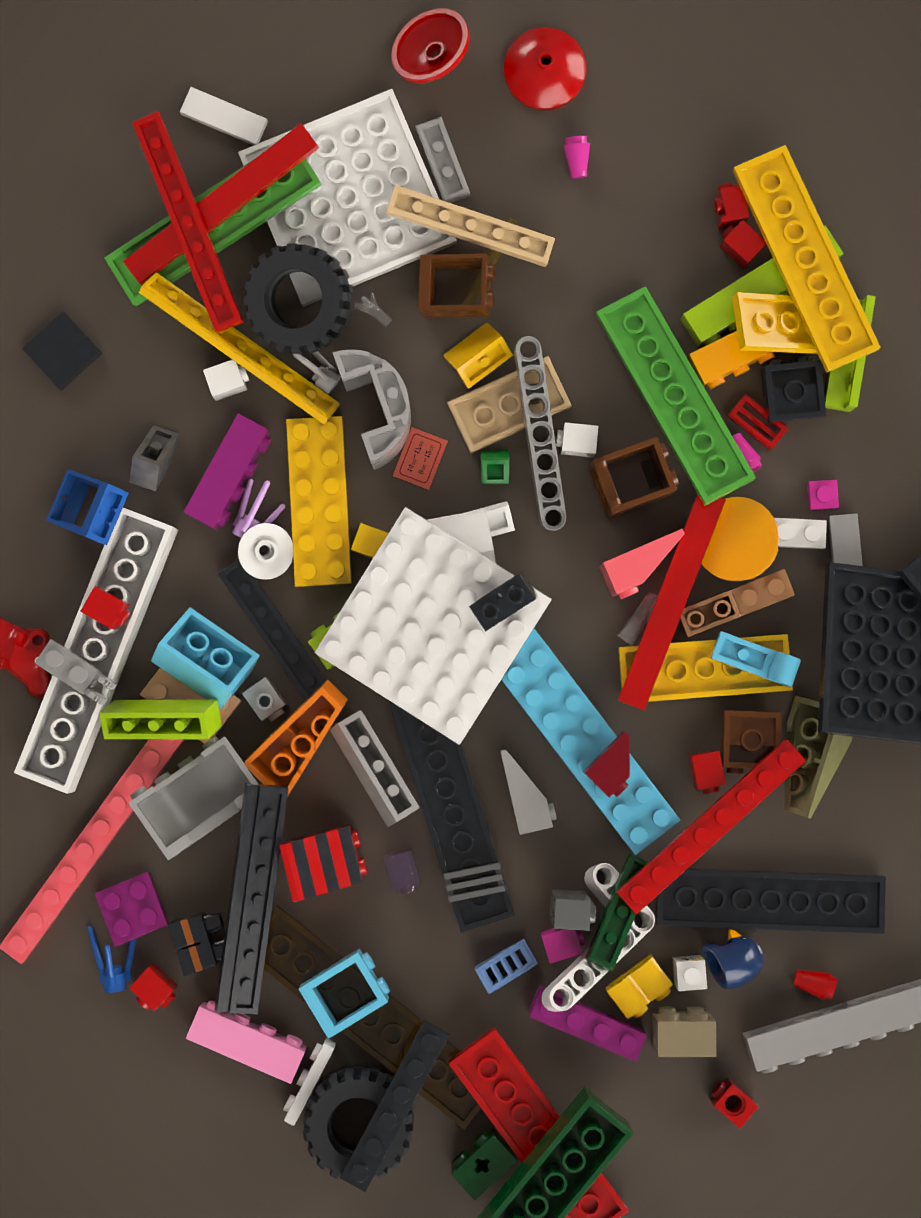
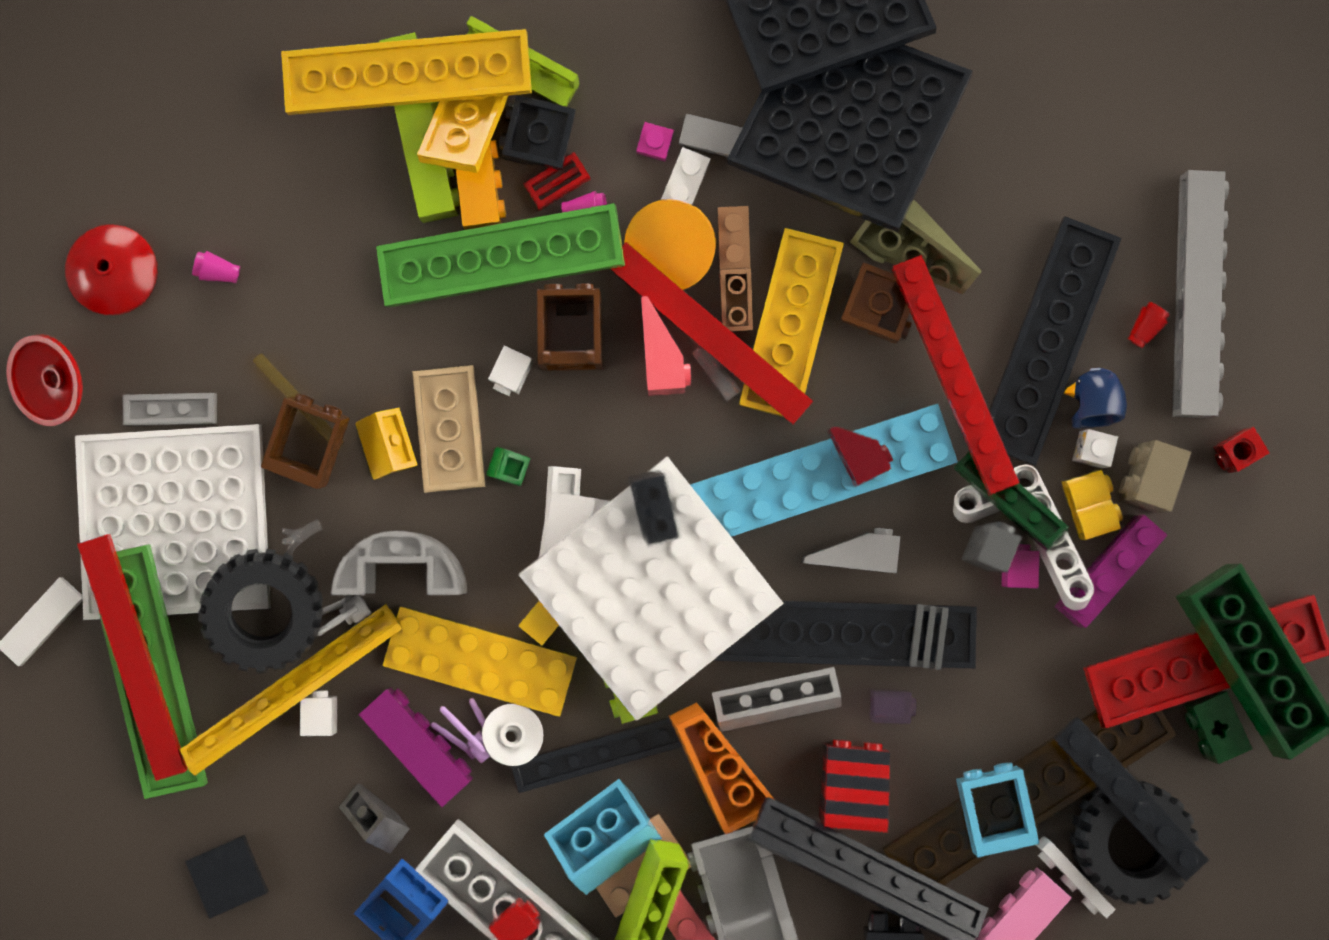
camera: 70 degrees left, 0 degrees up
(187, 222) = (138, 698): red plate -> none
(265, 700) = (667, 788): light grey brick -> none
(420, 458) = (472, 540): clear red sticker -> none
(470, 226) = (248, 405): tan plate -> none
(511, 974) = (1035, 632): medium blue slope -> none
(543, 420) = (479, 398): light grey beam -> none
(707, 771) = (896, 358): red brick -> none
(730, 205) = (324, 129): red brick -> none
(742, 243) = (367, 132): red brick -> none
(755, 659) = (800, 269): medium azure plate -> none

